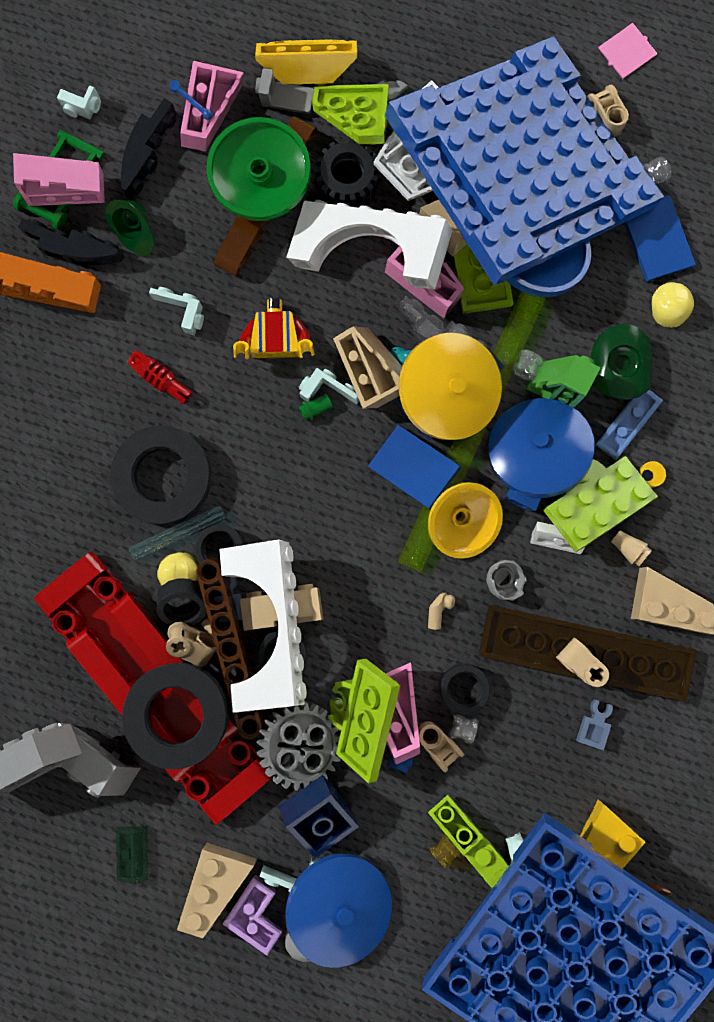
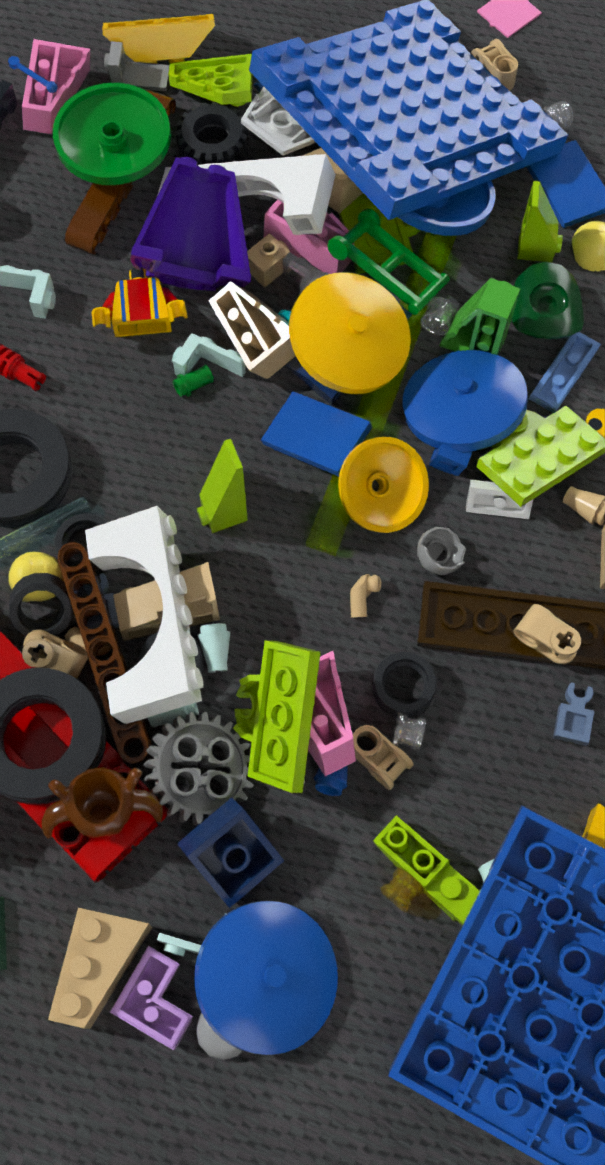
camera: 10 degrees left, 15 degrees down
(221, 777) = (99, 802): none -> reddish brown piece
(318, 644) = (215, 646): none -> light aqua cone
(327, 271) = (194, 230): none -> dark purple cone
(331, 518) = (224, 491): none -> lime wedge
(386, 297) = (267, 259): none -> tan brick
(478, 276) = (370, 222): none -> green piece
(624, 291) = (539, 228): none -> lime slope

